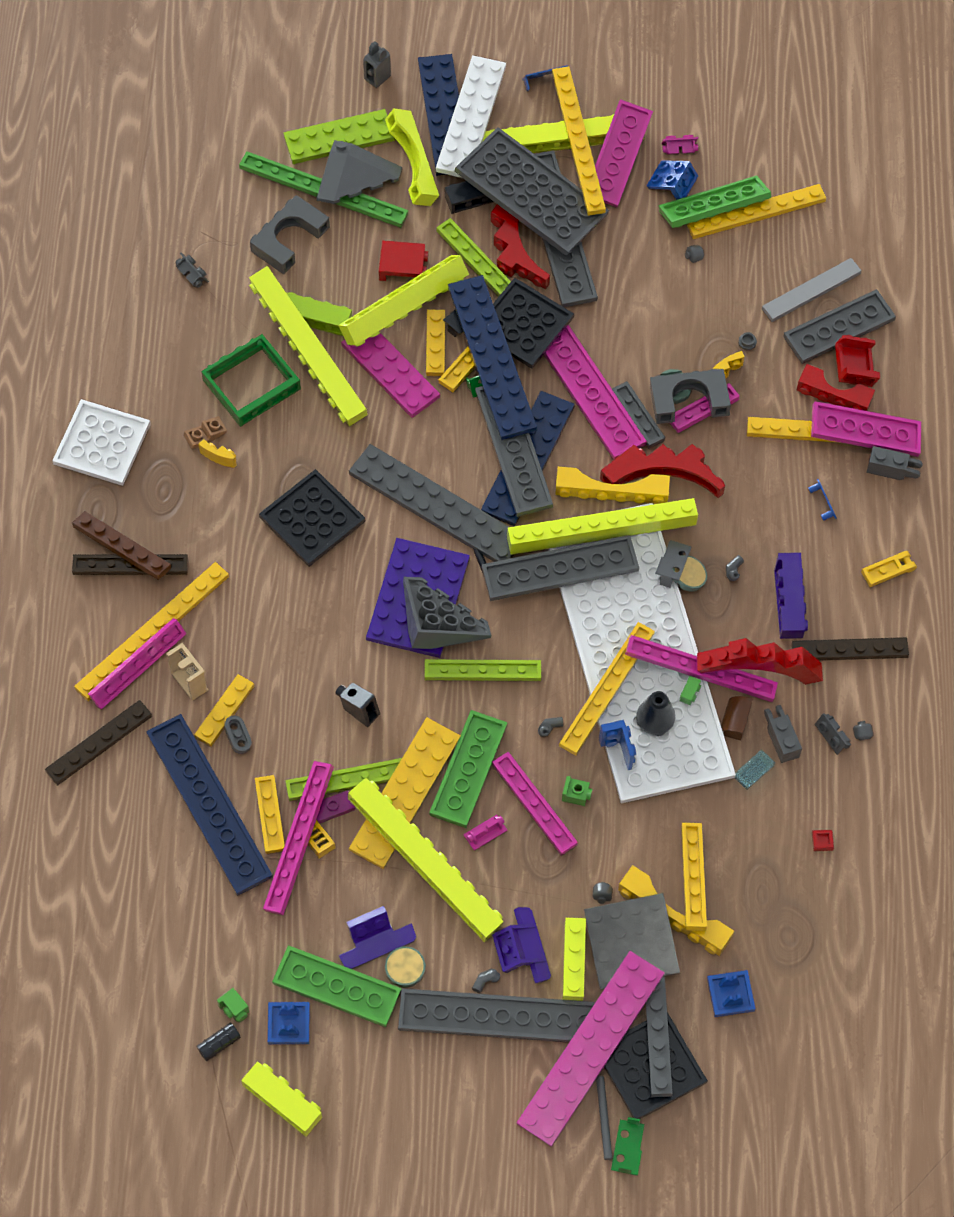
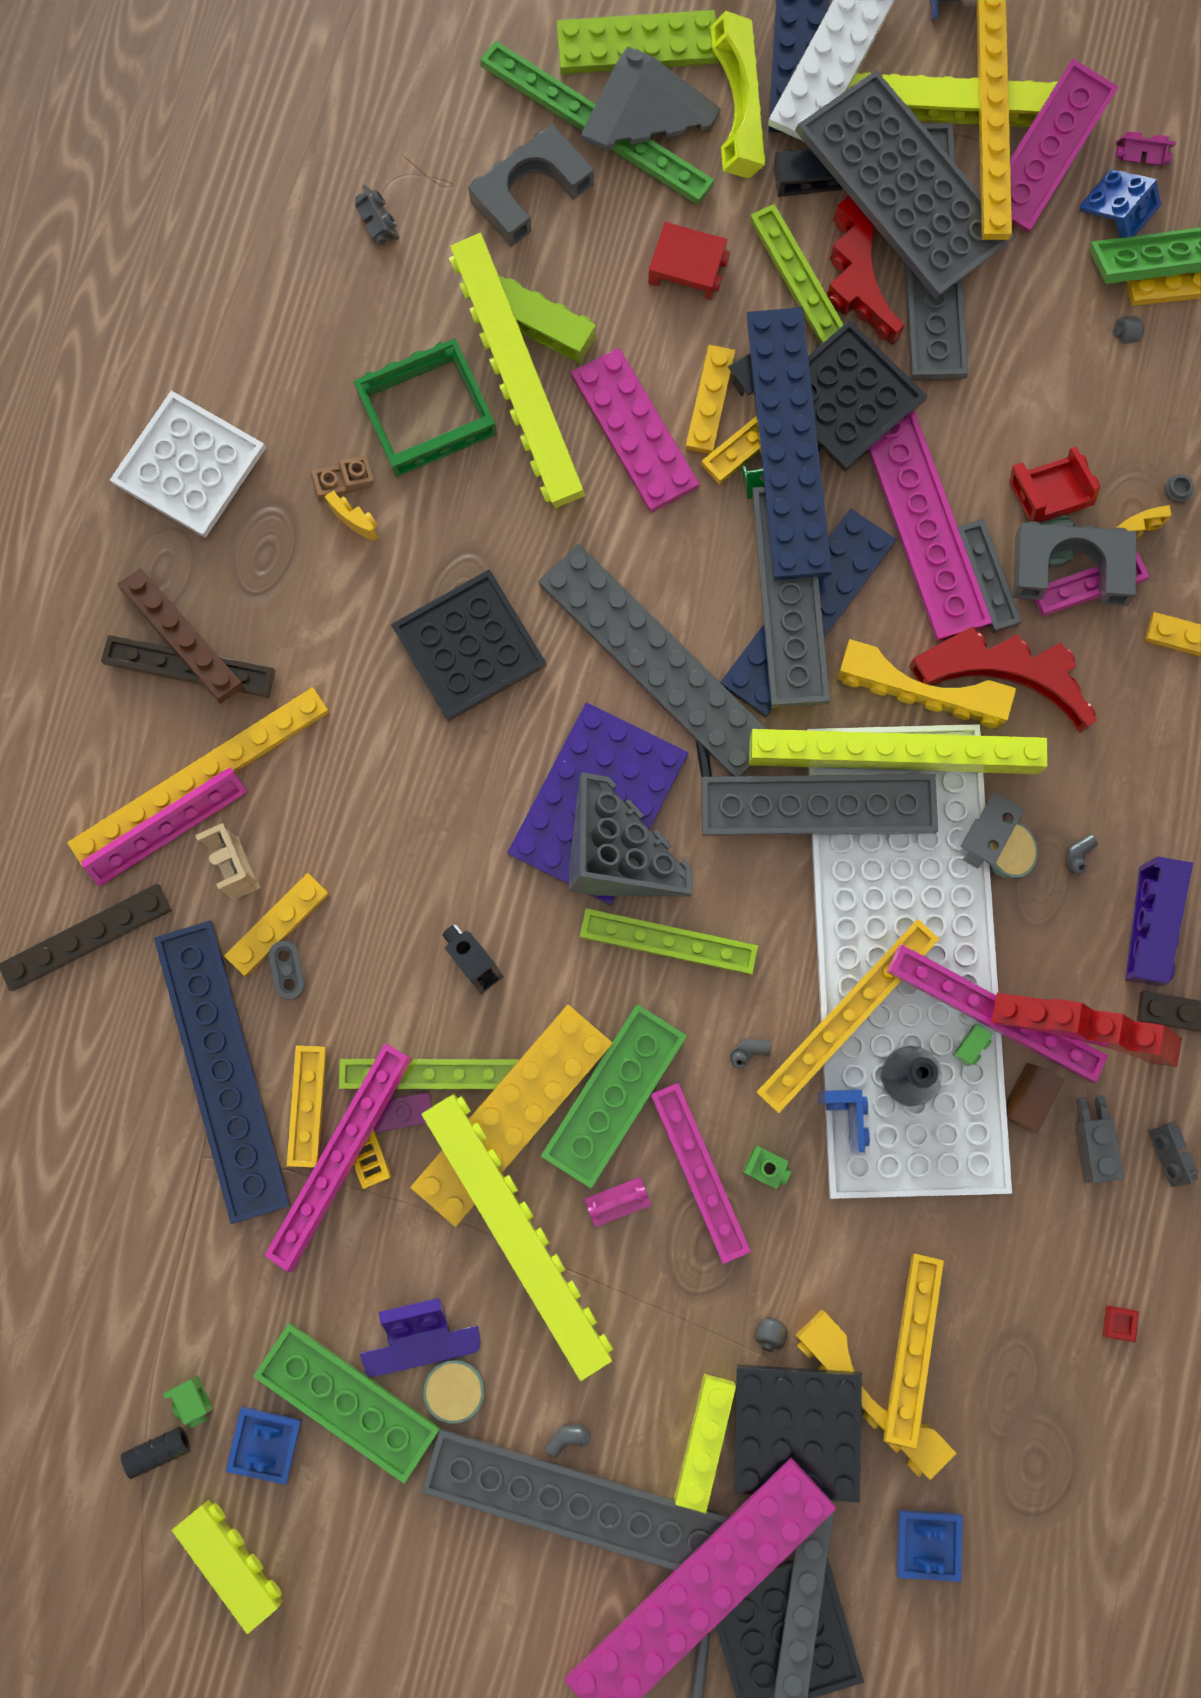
camera: 15 degrees right, 15 degrees up
(403, 300) = (675, 325): neon yellow brick -> none
(522, 946) = (632, 1400): dark purple plate -> none
(668, 354) = (1055, 487): none -> red panel
(754, 769) = (1041, 1186): clear light blue tile -> none

